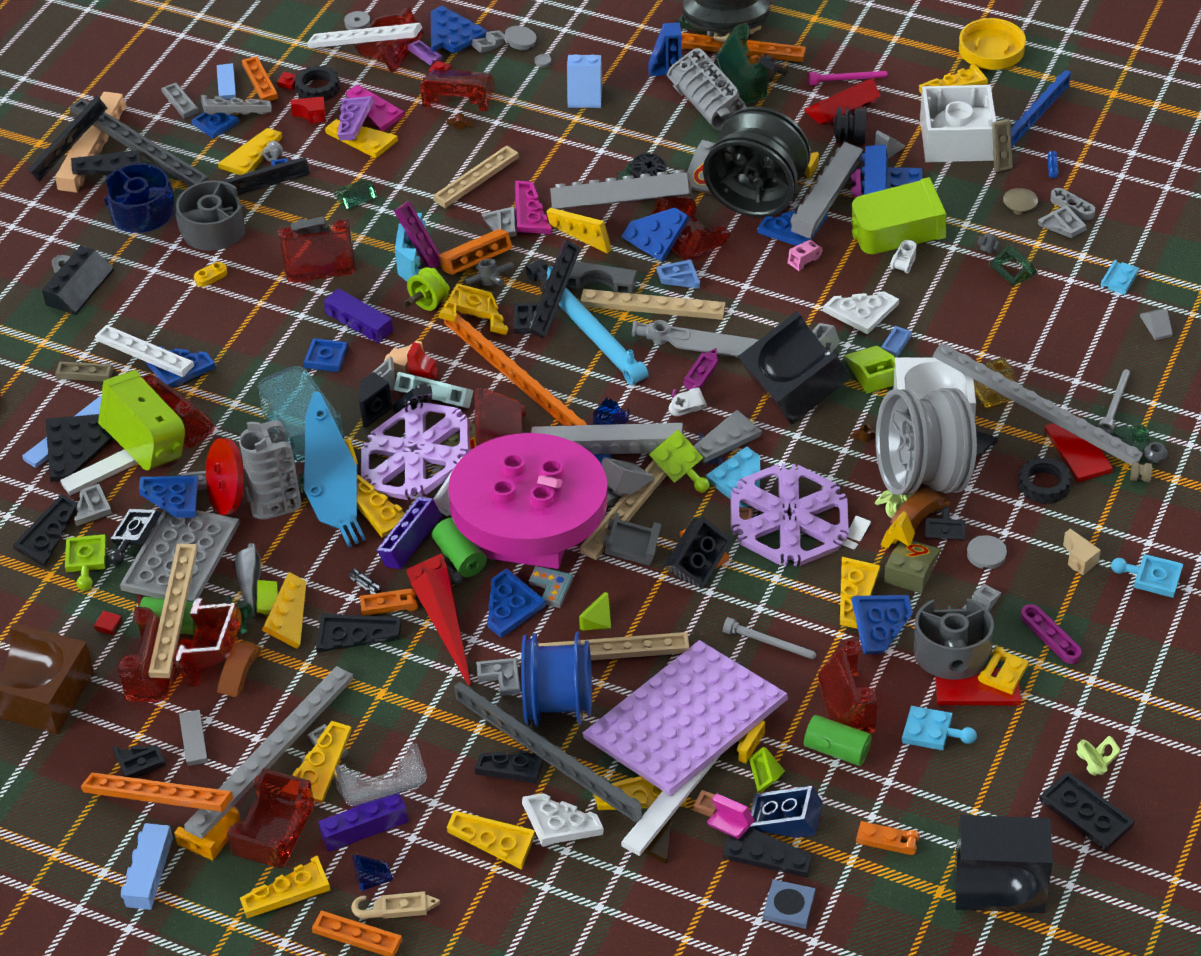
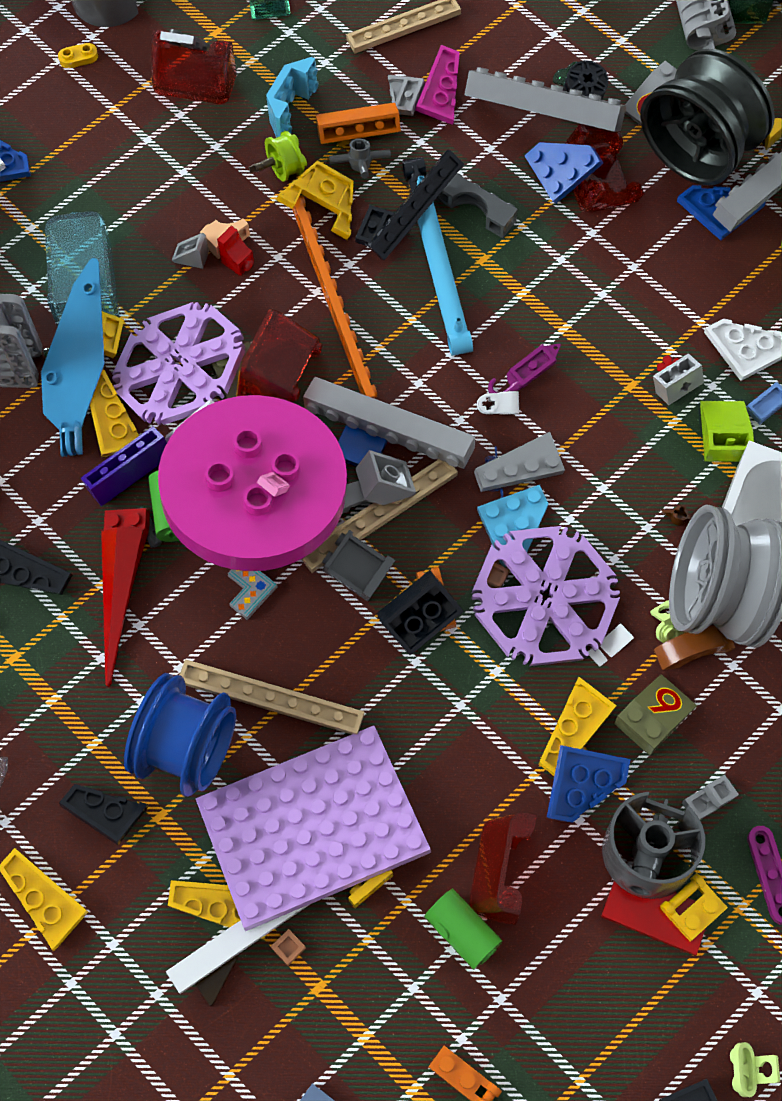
camera: 20 degrees right, 20 degrees up
(326, 355) = (148, 199): blue tile -> none
(358, 315) = (201, 162): dark purple brick -> none
(364, 581) = (58, 508): black axle -> none
(374, 398) = (163, 279): black slope -> none
(388, 602) = (69, 544): orange plate -> none
(418, 235) = (299, 85): magenta plate -> none
(420, 394) = (207, 299): black wing -> none
(440, 391) = (218, 274): light aqua arch -> none
(503, 670) = (140, 676): light grey tile -> none
(511, 603) = (194, 597): blue plate -> none
(552, 754) = (146, 822): dark grey plate -> none
(559, 821) = (118, 907): white plate -> none
(581, 227) = (484, 130): yellow wing -> none
(596, 615) = (280, 648): lime slope -> none
(610, 413) = (403, 385): clear blue piece -> none
(653, 304) = (521, 256): tan plate -> none
(678, 457) = (451, 479): lime plate -> none
(679, 274) = (565, 227): medium blue wing -> none
(691, 339) = (557, 328): light grey piece -> none
(730, 816) = (299, 984): dark pink panel -> none
(731, 626) = (418, 722): light grey piece -> none
(765, 769) = (371, 930): lime slope -> none
(767, 852) = (319, 1036): black wing -> none
(787, 812) = (365, 1000): dark blue slope -> none
(793, 368) = (629, 408): black piece -> none
(804, 254) = (715, 249): bright pink leg -> none
(899, 530) = (656, 669): yellow slope -> none
(931, 727) = (577, 949): medium azure plate -> none
(945, 528) = (712, 681): black plate -> none
(986, 552) = (747, 730): light grey tile -> none

